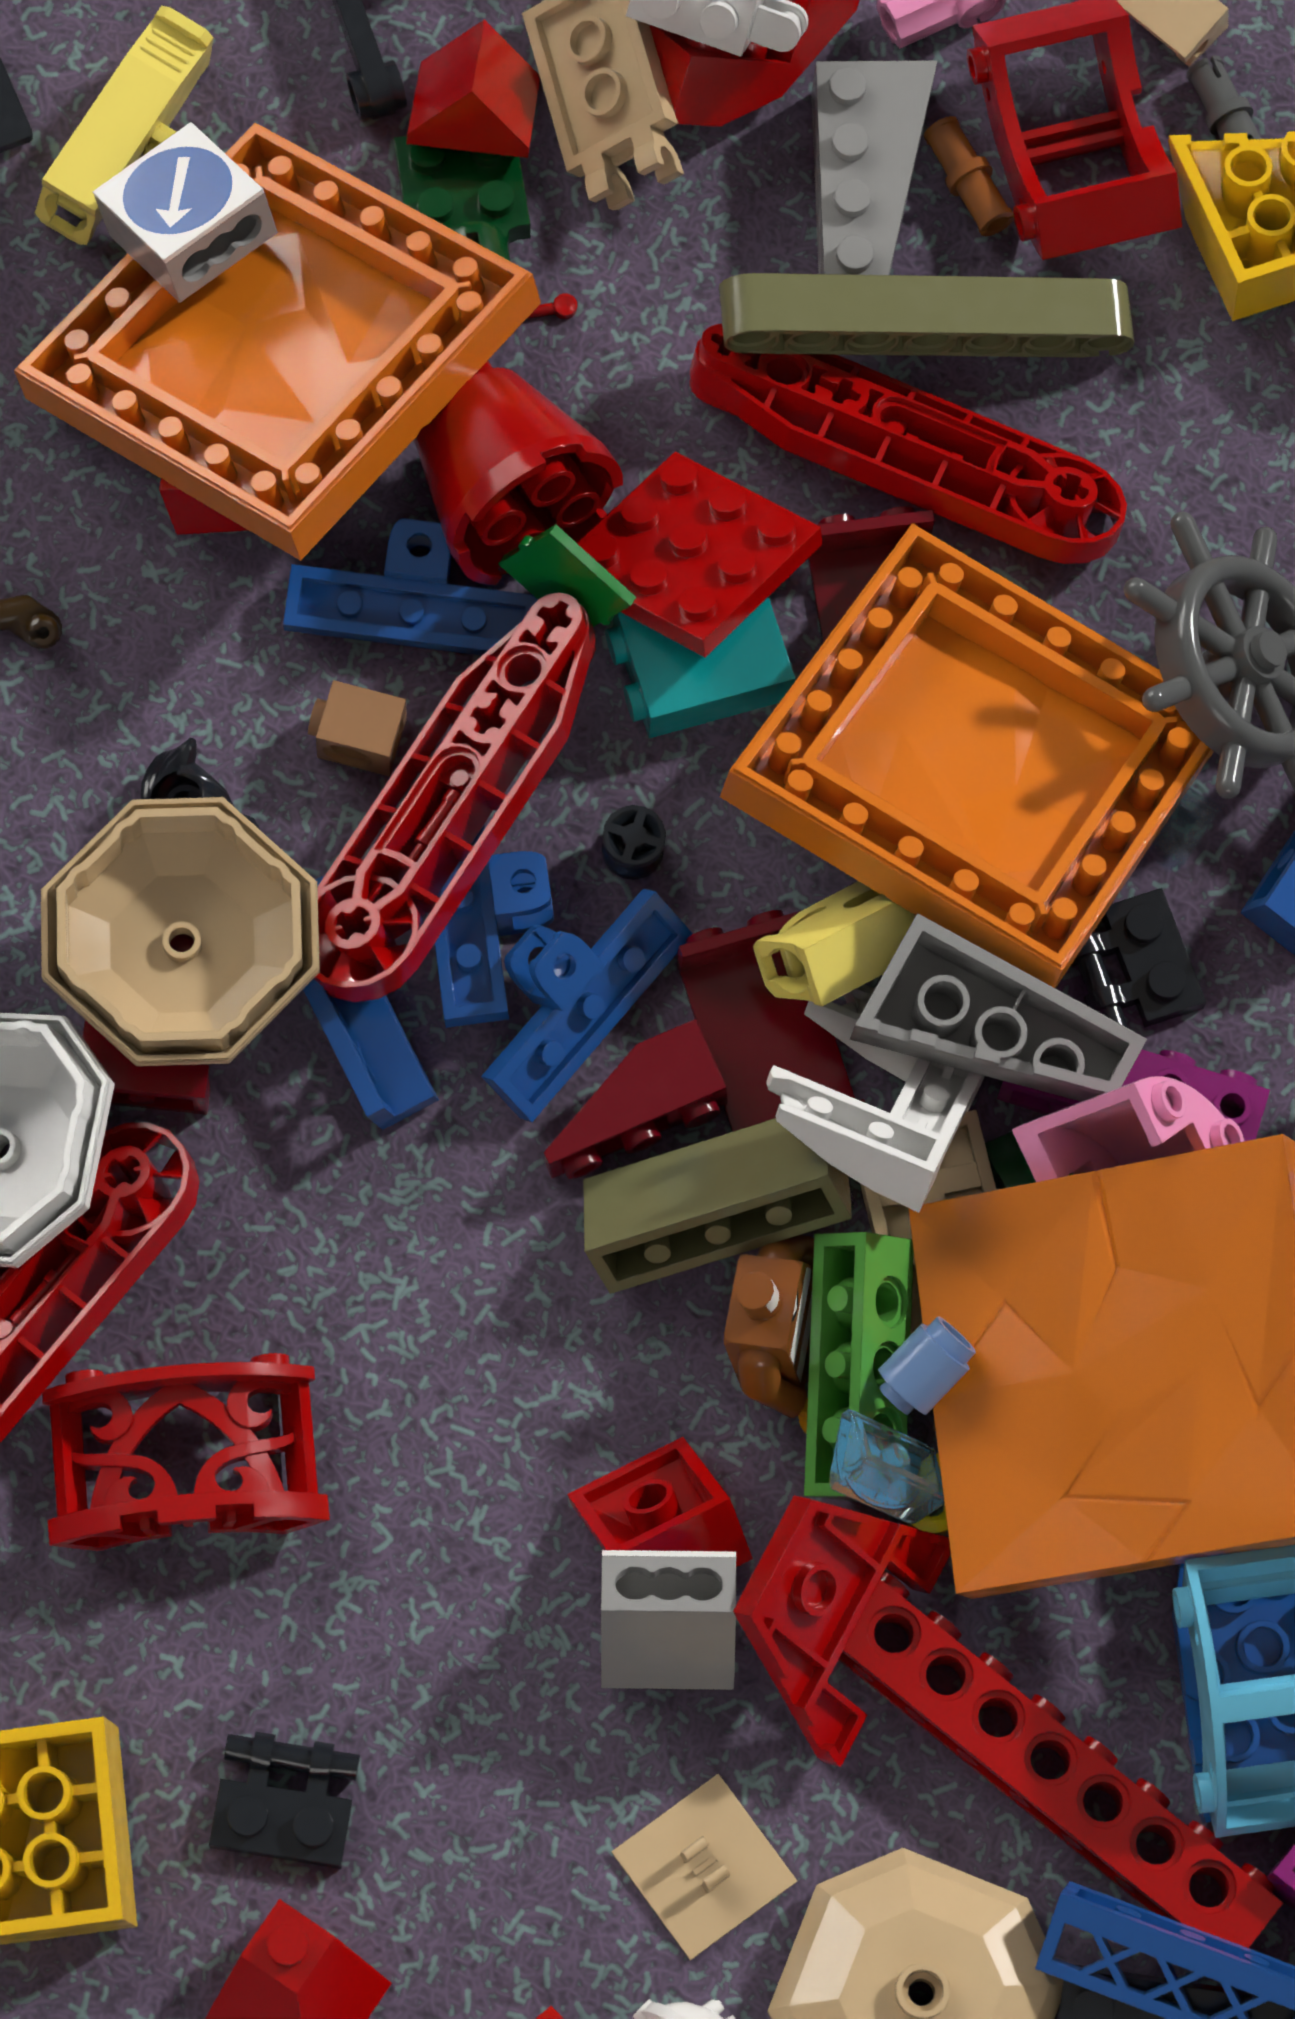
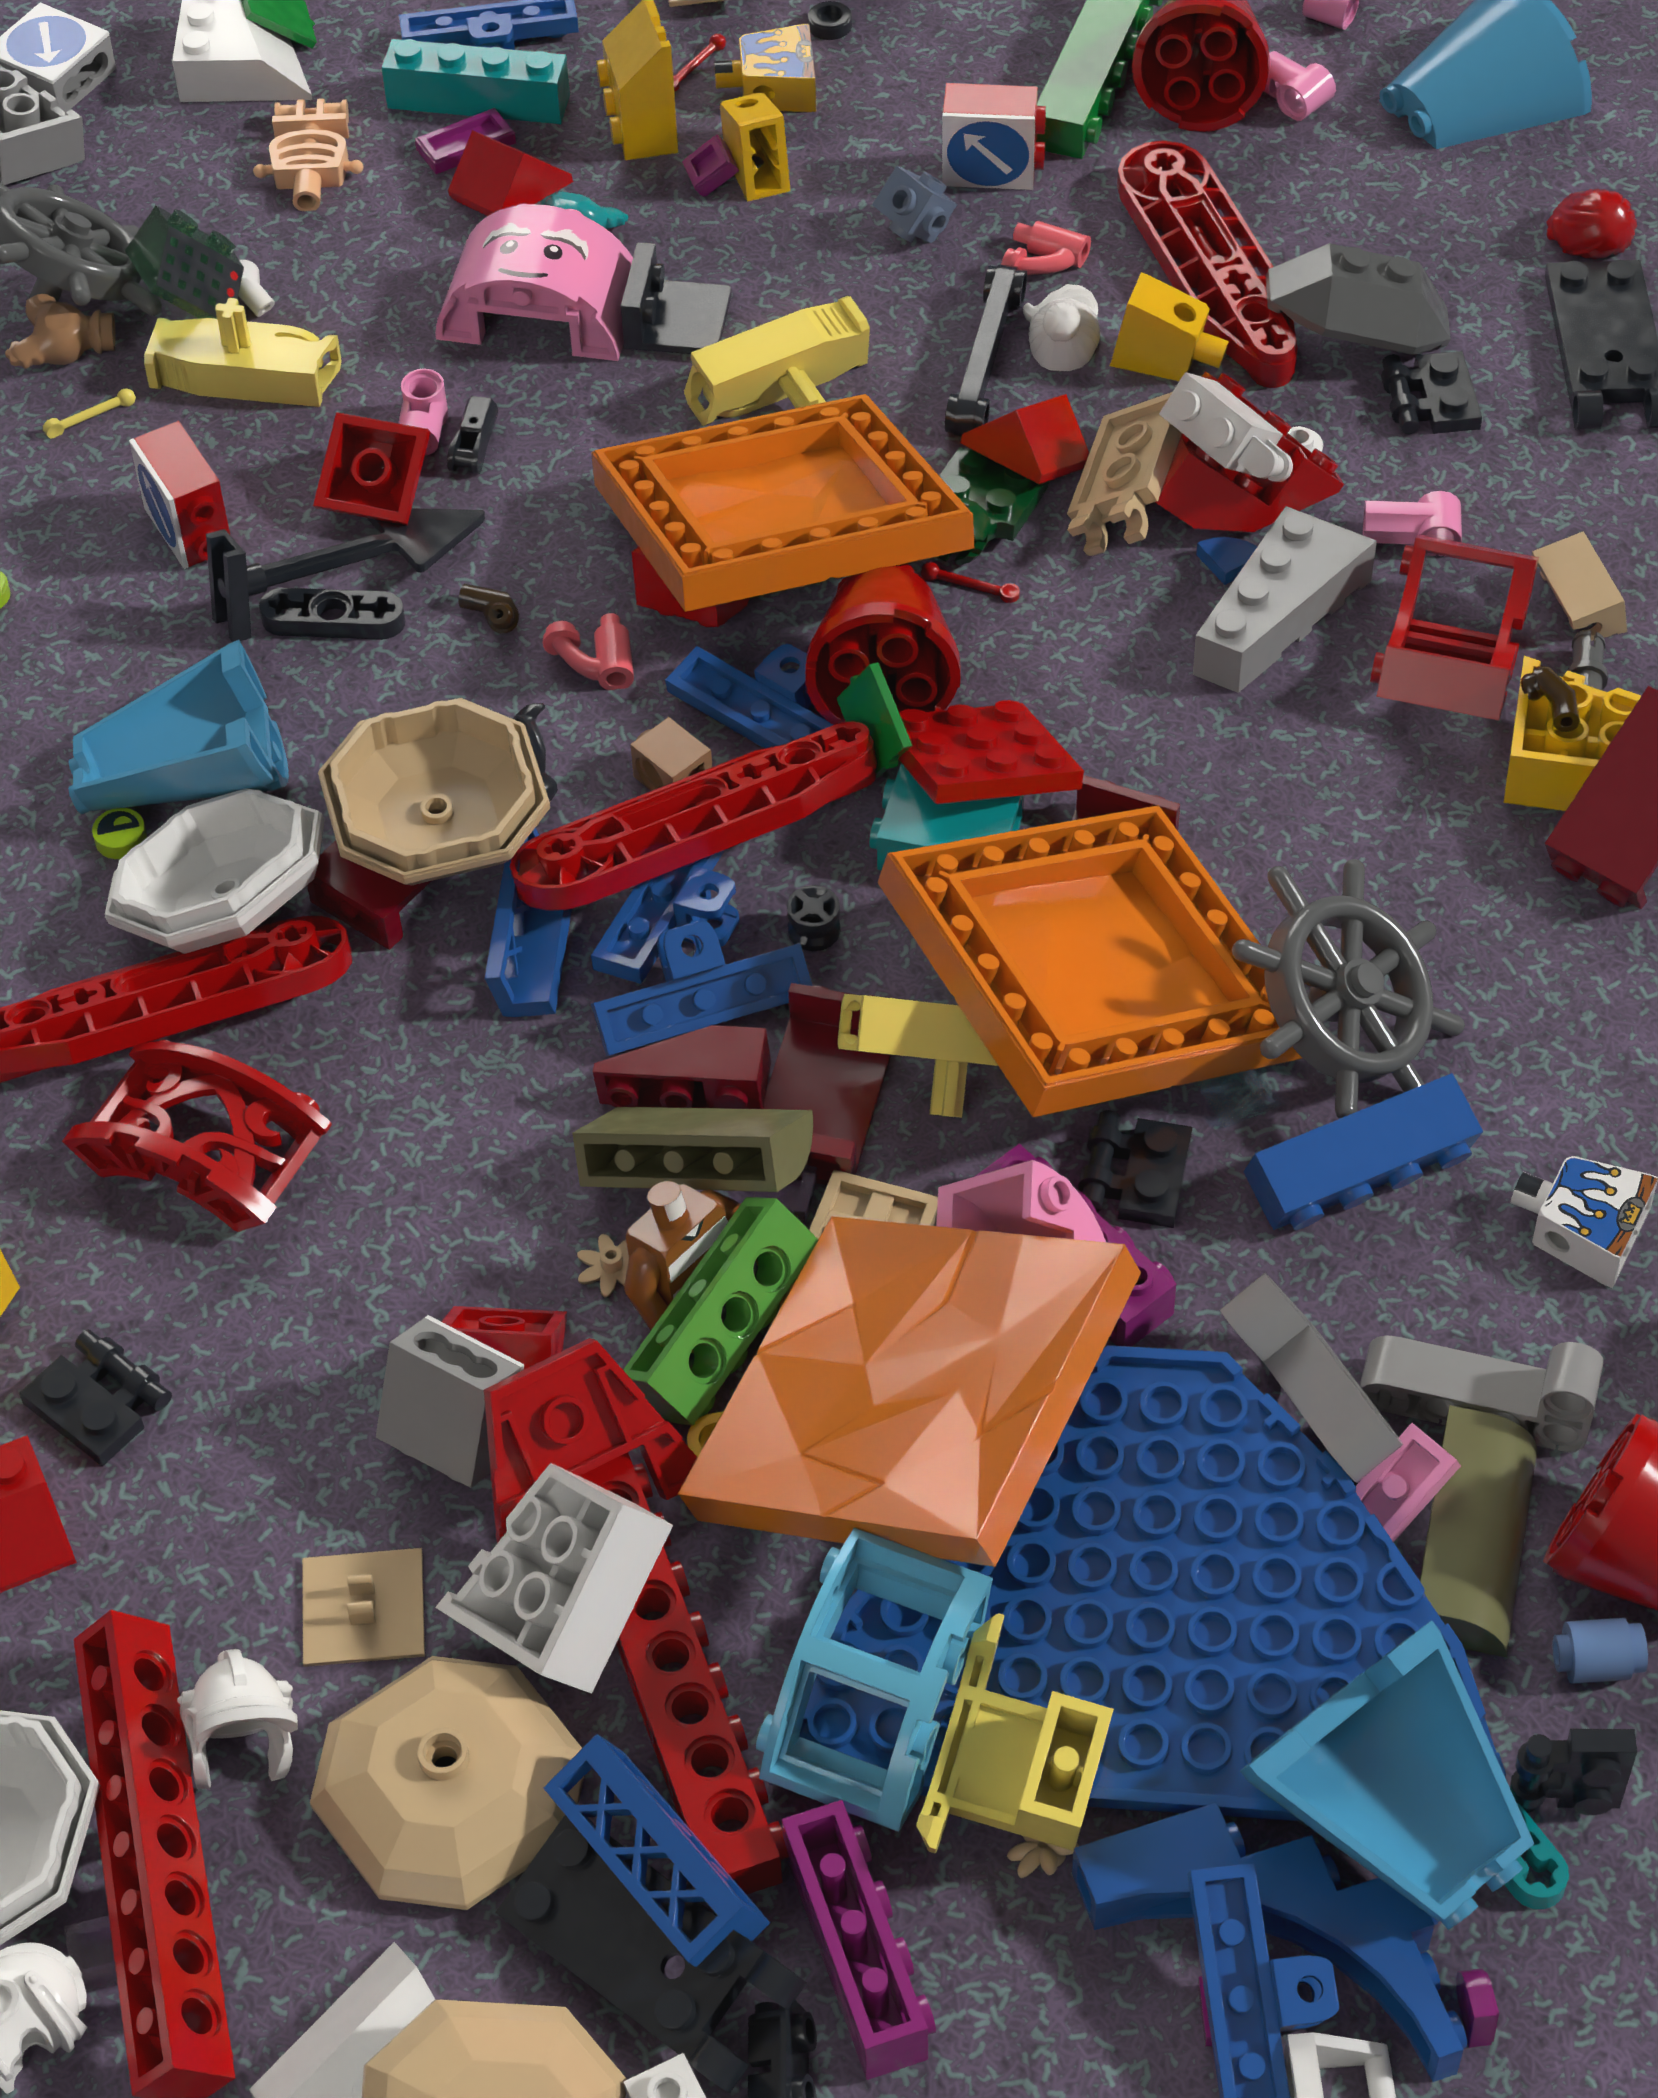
camera: 40 degrees right, 20 degrees down
(185, 212) = (770, 403): piece -> none
(204, 624) = (612, 646): none -> coral plant
(686, 1369) = (606, 1266): none -> tan plant
(771, 140) = (1225, 556): none -> blue tile
(882, 1150) = (841, 1158): white wedge -> none
(885, 1469) = (681, 1376): clear light blue slope -> none
(912, 1753) = (561, 1577): none -> white wedge
(915, 447) = (1197, 765): red beam -> none
(925, 315) = (1262, 688): olive beam -> none
(925, 1367) = (760, 1316): medium blue brick -> none
(969, 176) = (1360, 632): dark orange pin -> none
(992, 1019) = (964, 1096): light grey wedge -> none
(1245, 179) = (1559, 694): none -> dark brown arm

